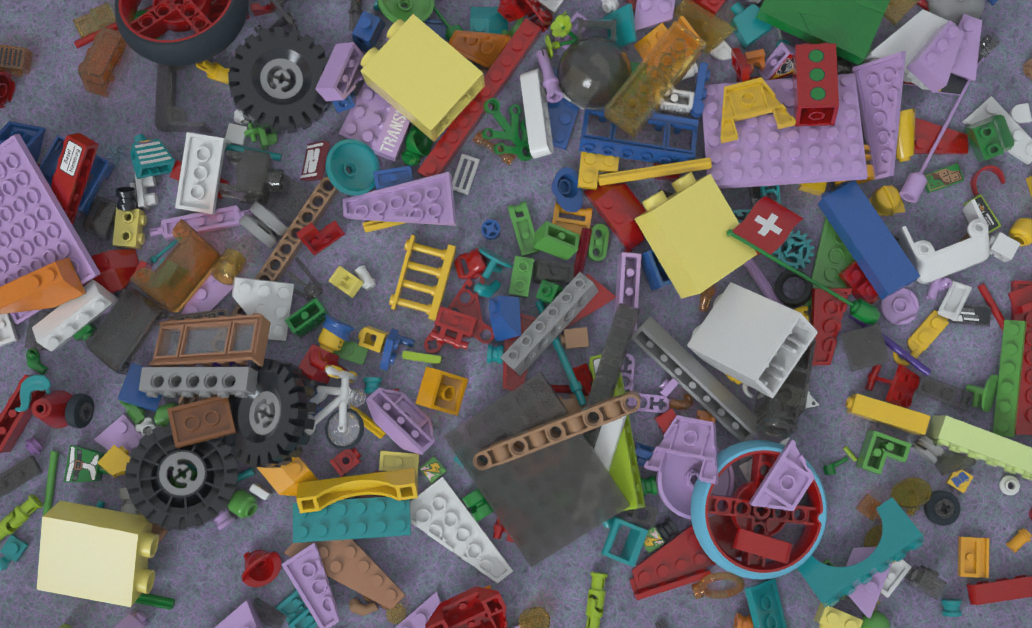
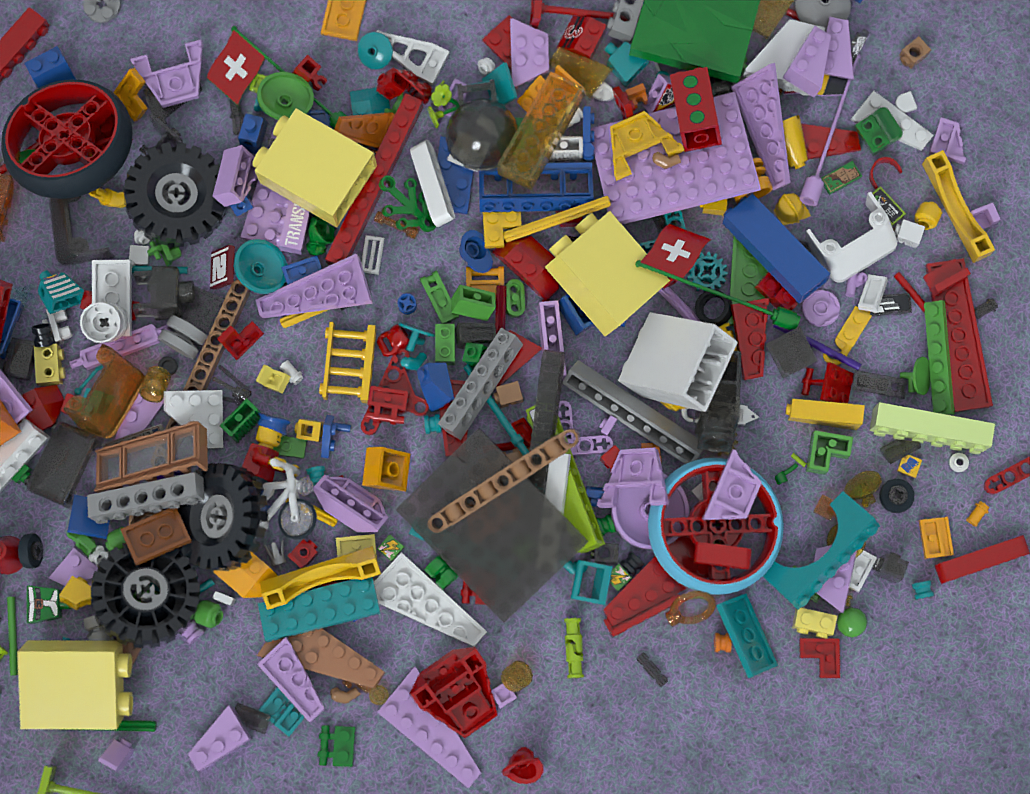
camera: 10 degrees left, 5 degrees down
(176, 197) = (94, 326): none -> white wheel
(246, 248) = (169, 364): none -> black tile
(260, 10) = (142, 130): red tile -> none
(260, 567) = (237, 673): red helmet -> none
(319, 460) = (276, 557): none -> light grey piece
(422, 357) = (372, 439): lime tile -> none
(550, 82) = (440, 150): lavender pin -> none
(683, 404) = (624, 440): clear orange arm -> none
(705, 297) = (629, 332): clear orange arm -> none
(773, 132) = (664, 161): none -> medium nougat arm
(927, 449) = (871, 441): light grey wheel -> none

